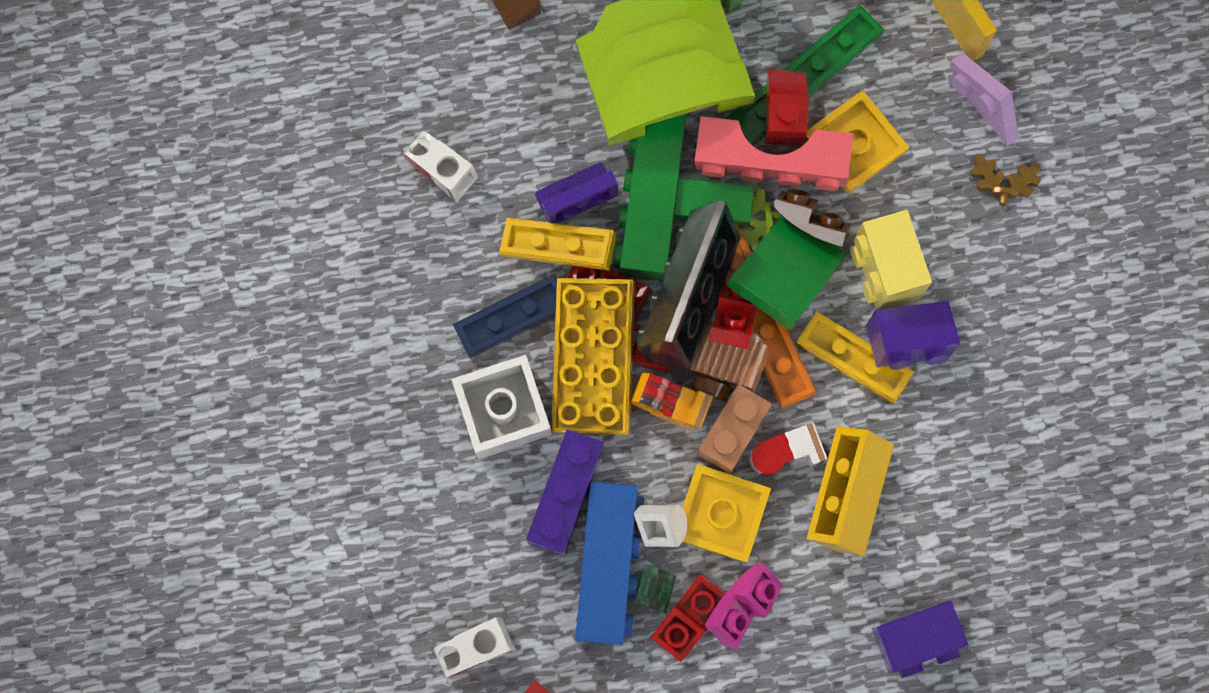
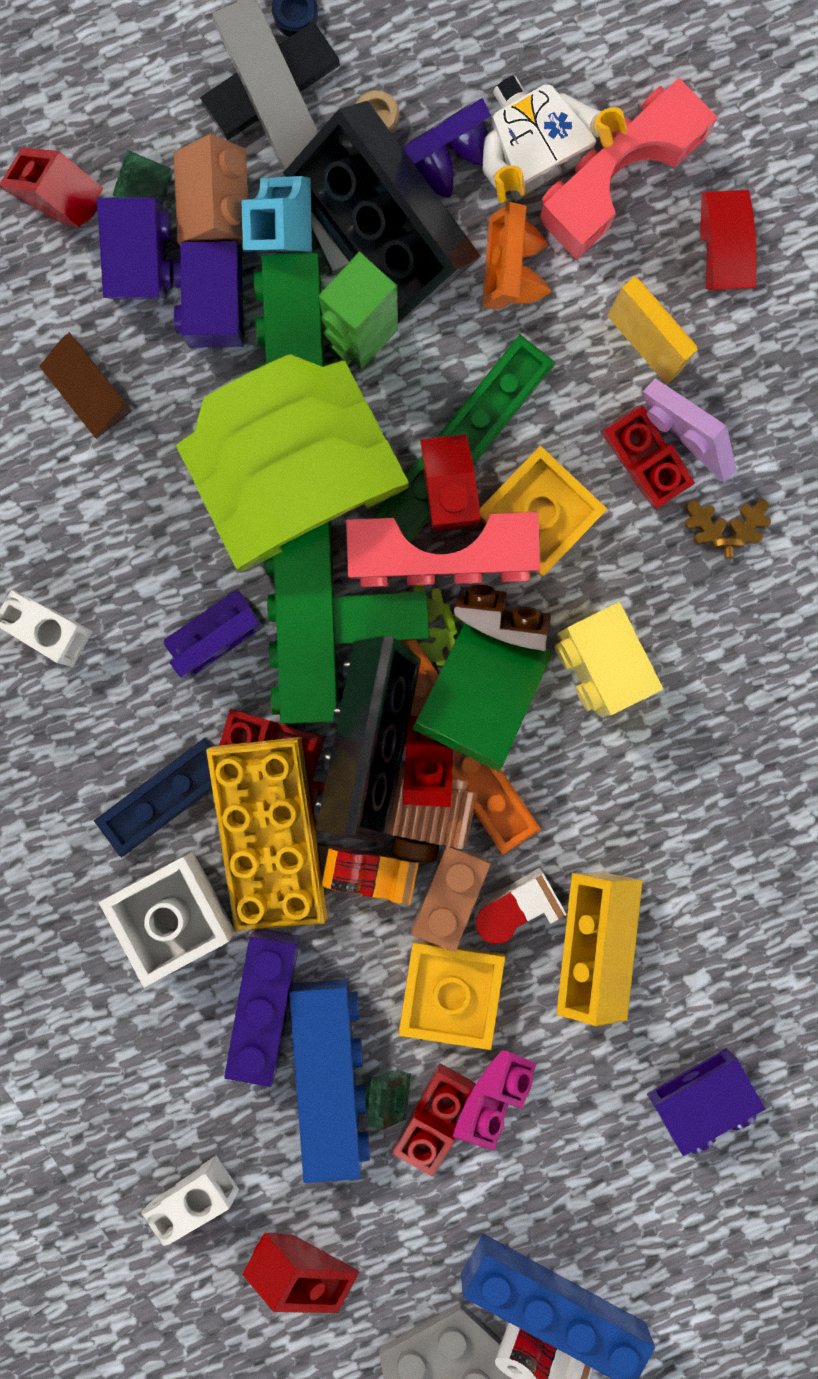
camera: 10 degrees left, 10 degrees up
(558, 243) = (202, 702): yellow tile -> none
(661, 525) = (382, 1027): white brick -> none
(852, 357) = (579, 777): yellow tile -> none
(912, 335) = (645, 744): dark purple brick -> none
(947, 115) = (647, 457): none -> red slope

